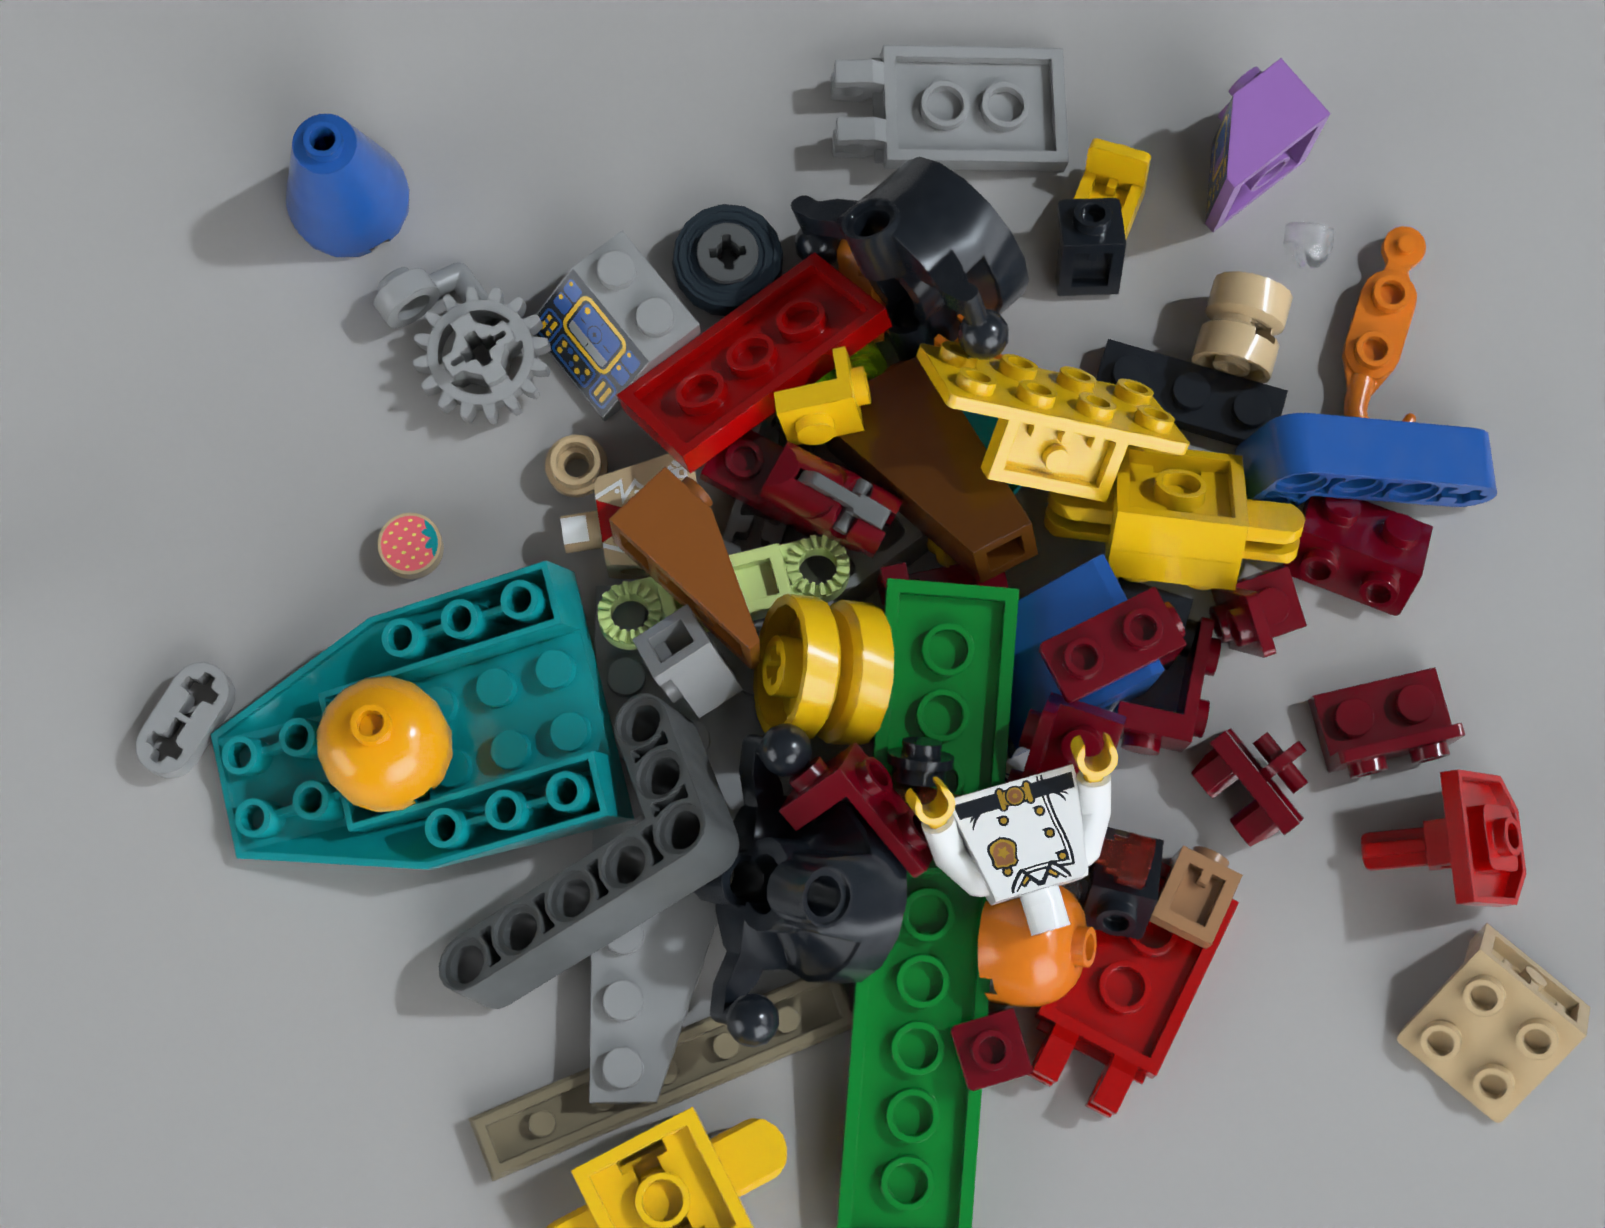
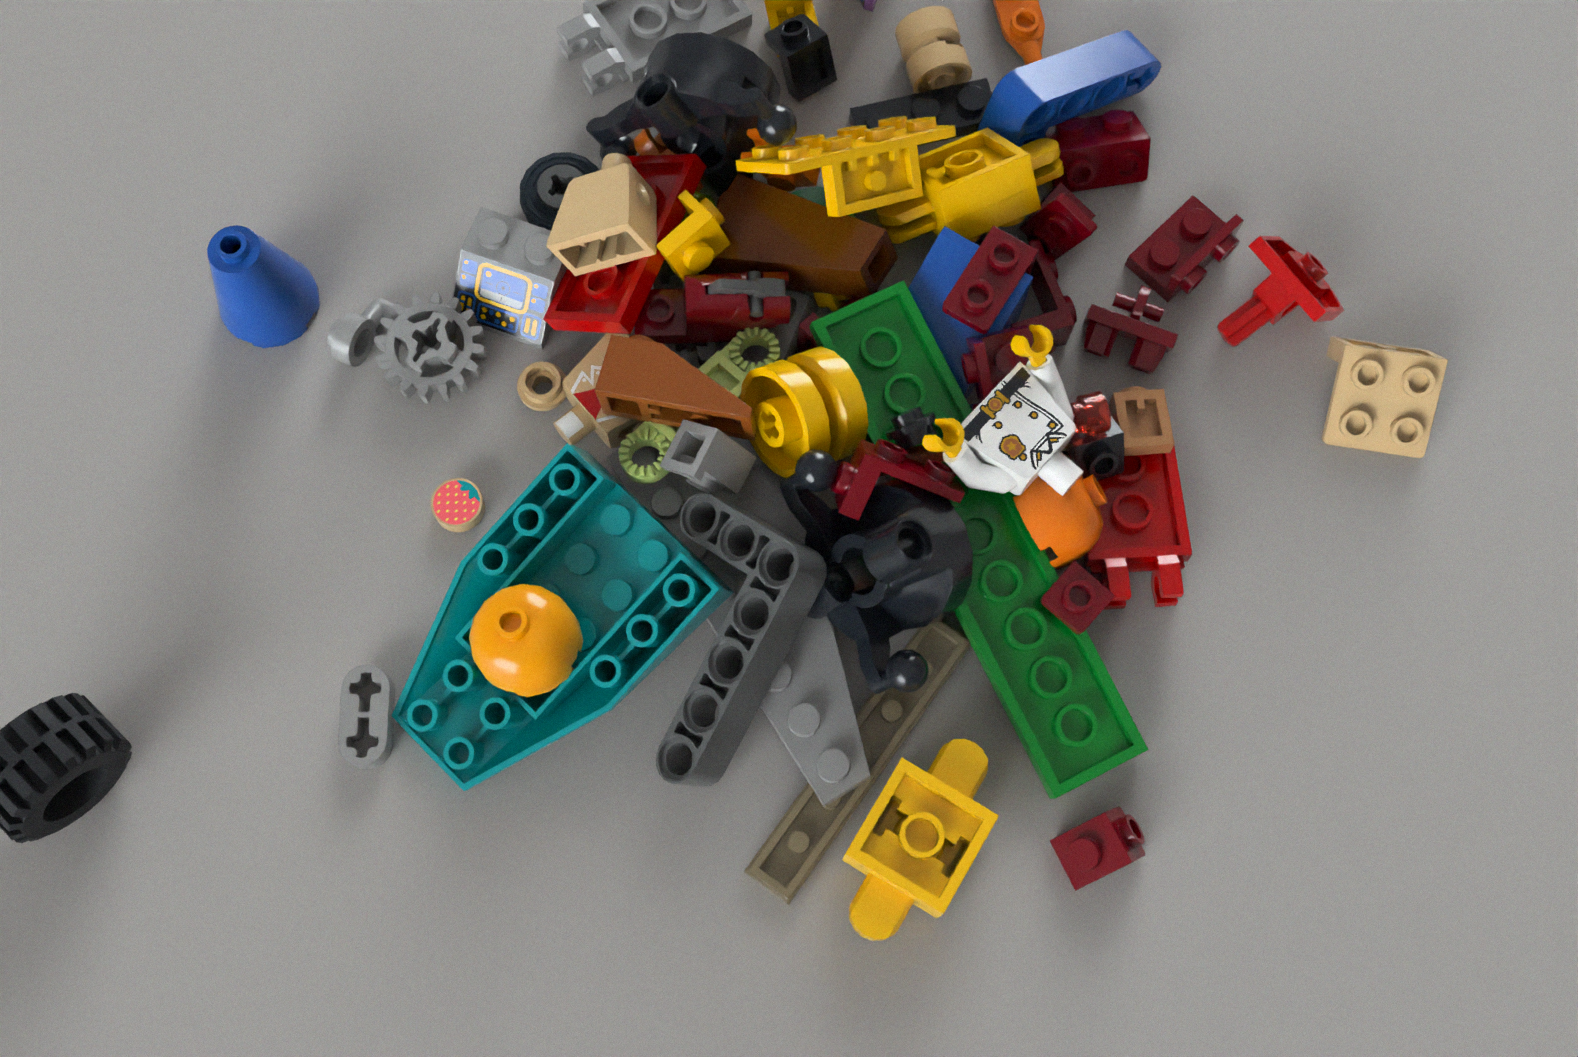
camera: 30 degrees left, 5 degrees down
(744, 325) = (605, 218): none -> tan torso

